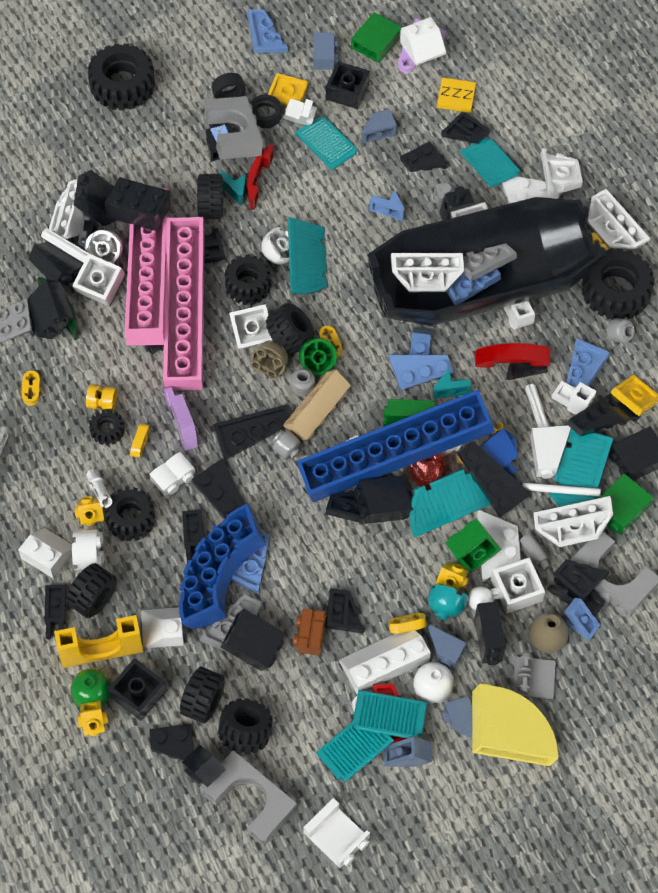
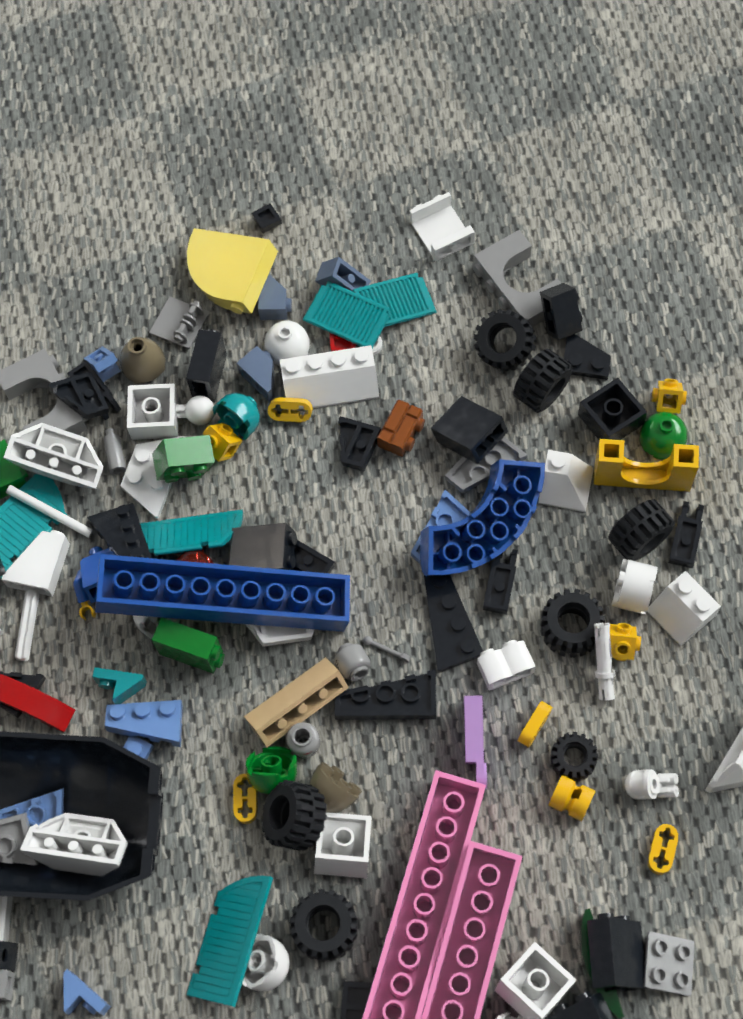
camera: 155 degrees left, 5 degrees up
(50, 420) = (649, 785): none -> white piece
(281, 468) = (367, 640): none -> light grey hinge
(500, 798) = (266, 218): none -> black plate

